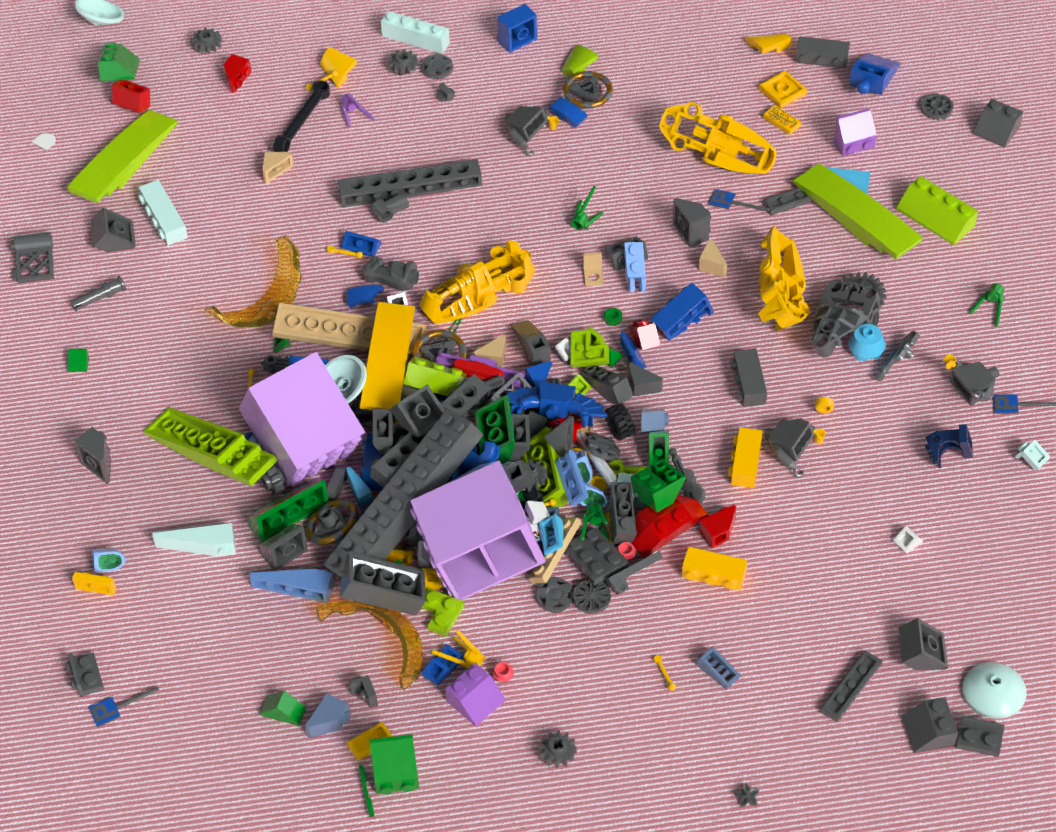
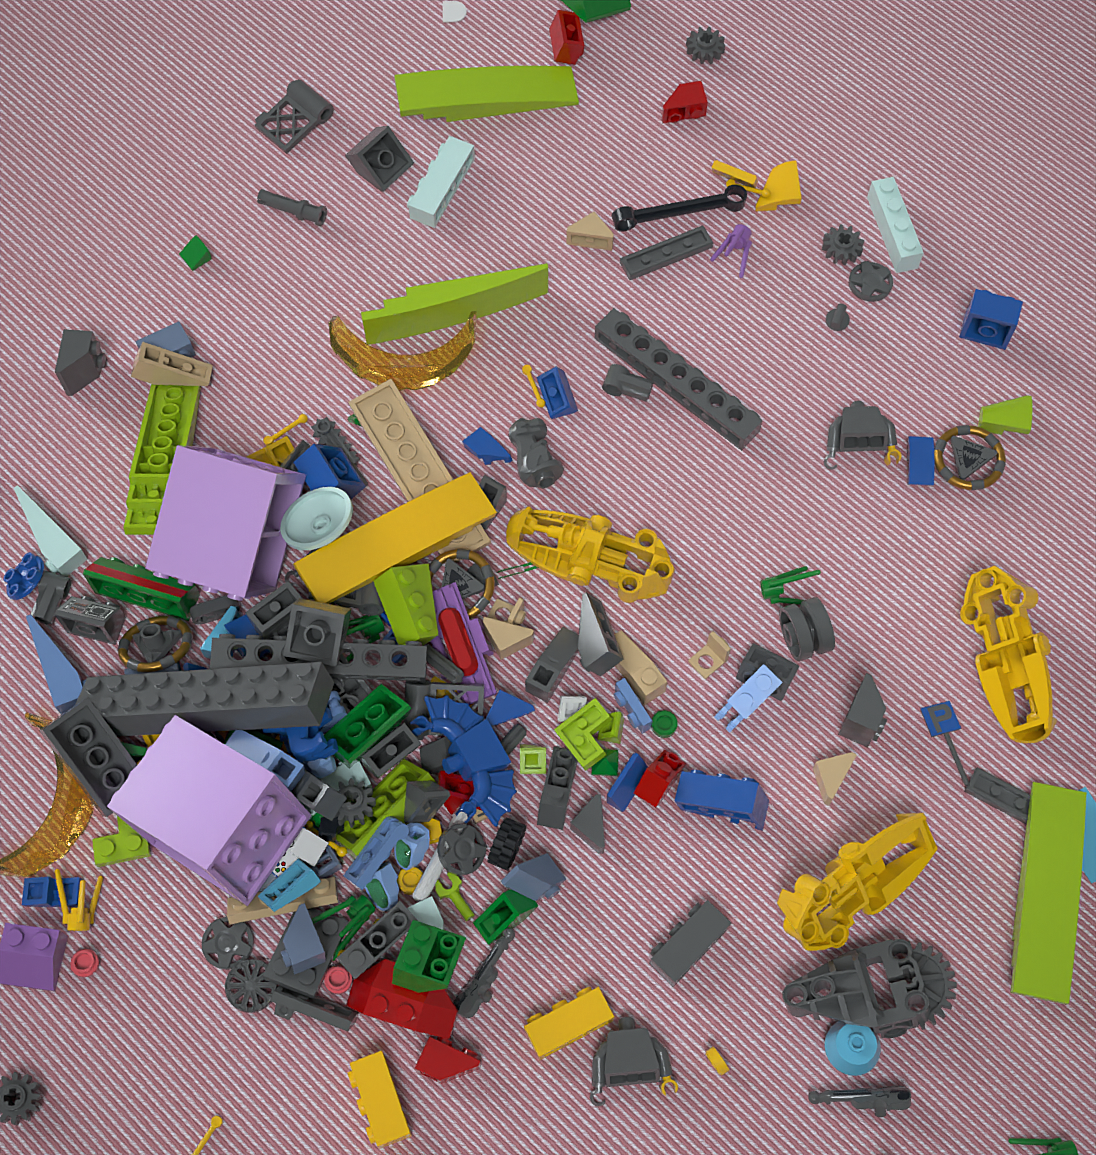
camera: 50 degrees right, 15 degrees up
(131, 408) = (170, 338): none -> sand blue slope
(147, 415) = (169, 368): none -> tan slope
(218, 567) = (24, 577): none -> blue dish
(243, 559) = (52, 590): none -> dark grey piece
(254, 251) = (451, 302): none -> lime slope
(309, 78) = (734, 173): none -> yellow tile
(322, 142) = (666, 252): none -> dark grey tile
(484, 337) = (517, 612): none -> tan bracket
(539, 312) = (596, 638): none -> dark grey slope
(568, 307) = (639, 670): none -> tan slope
(583, 320) = (637, 714): none -> medium blue plate
(593, 544) = (302, 943): none -> sand blue slope
(620, 215) = (807, 629): none -> dark grey wheel

